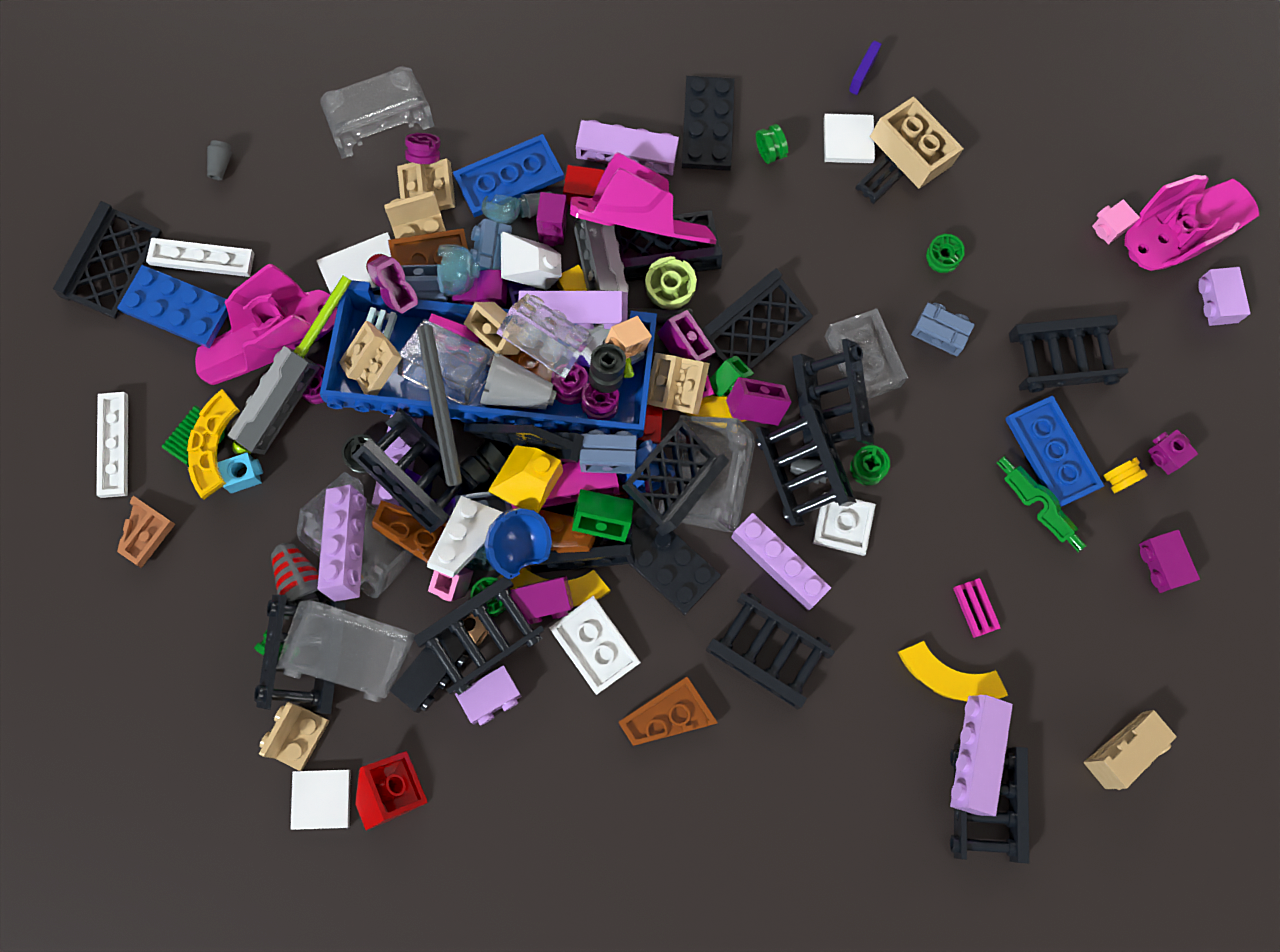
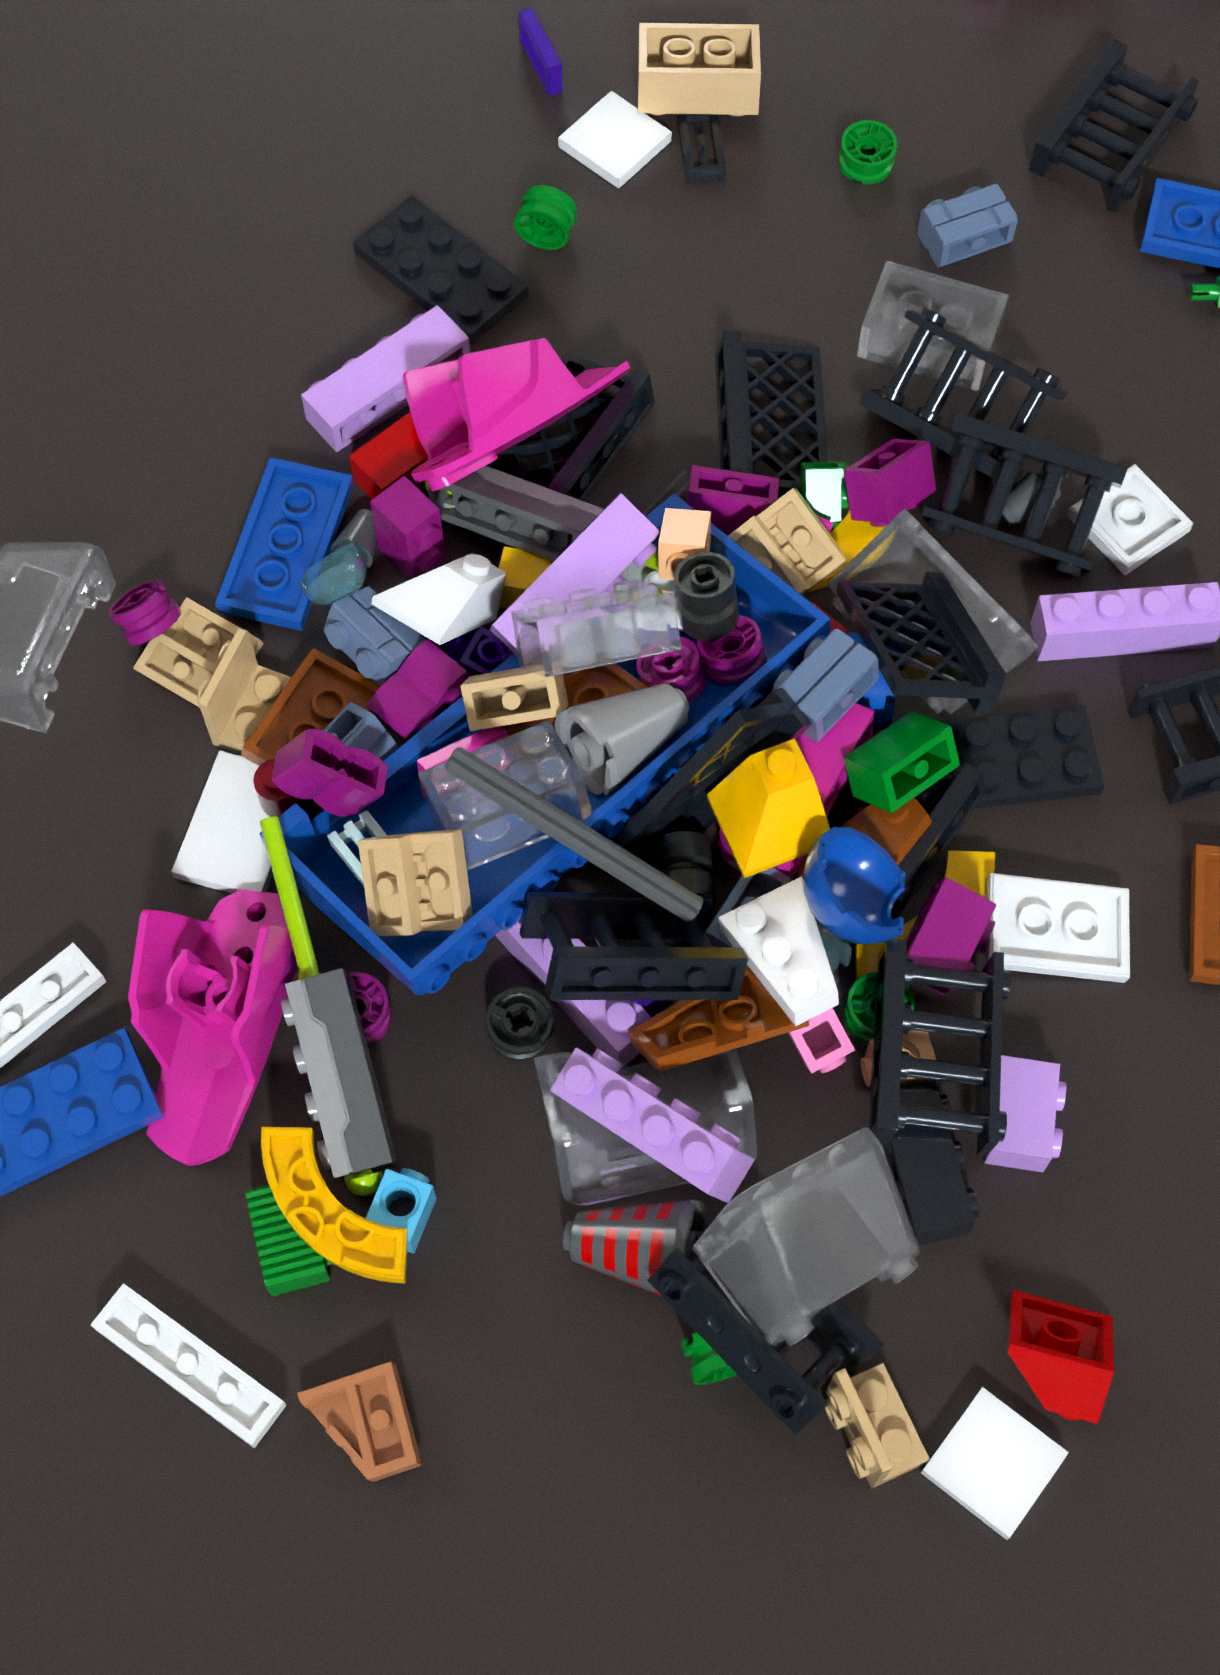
camera: 45 degrees left, 10 degrees down
(456, 270) = (380, 684): clear light blue cylinder -> none
(670, 283) = (634, 460): yellowish green cylinder -> none
(860, 469) = (1088, 419): green wheel -> none

